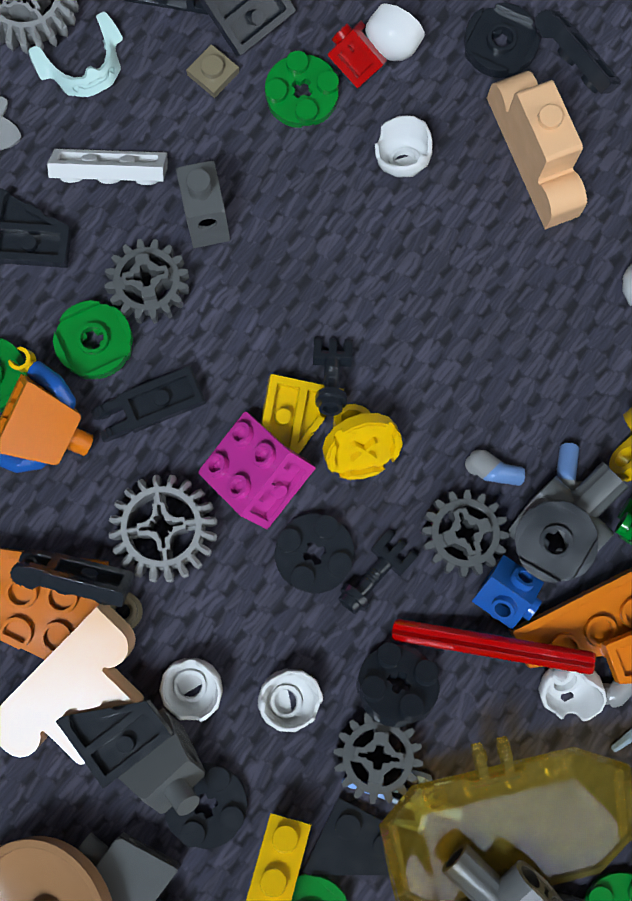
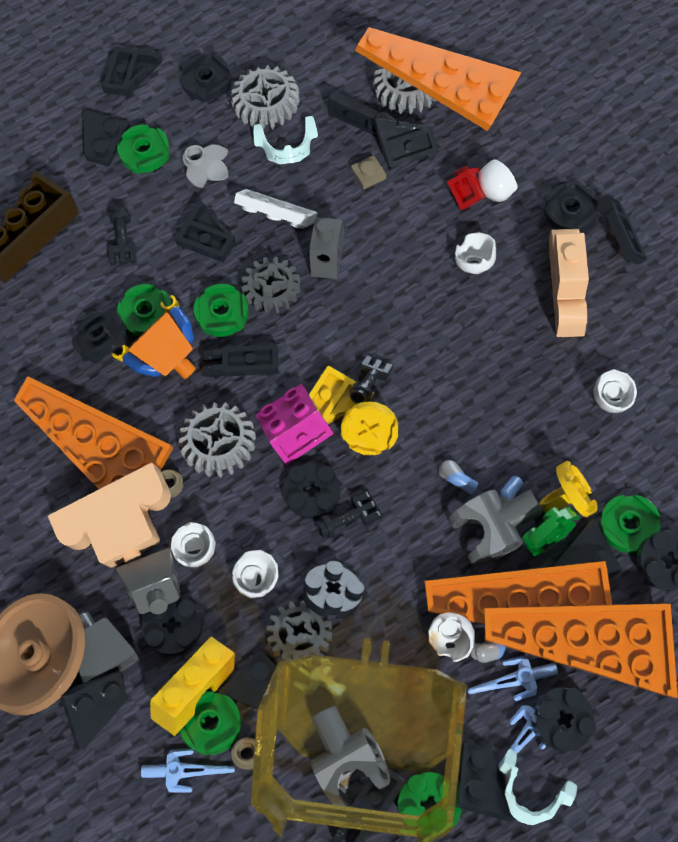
camera: 30 degrees right, 15 degrees down
(72, 576) = (145, 443): black hinge -> none
(115, 737) = (130, 549): black wing -> none
(300, 70) = (425, 187): green plate -> none
(471, 551) = (431, 510): dark grey gear -> none
(494, 646) = (408, 586): red axle -> none
(509, 593) = (433, 556): blue brick -> none
(561, 564) = (477, 511): black plate -> none

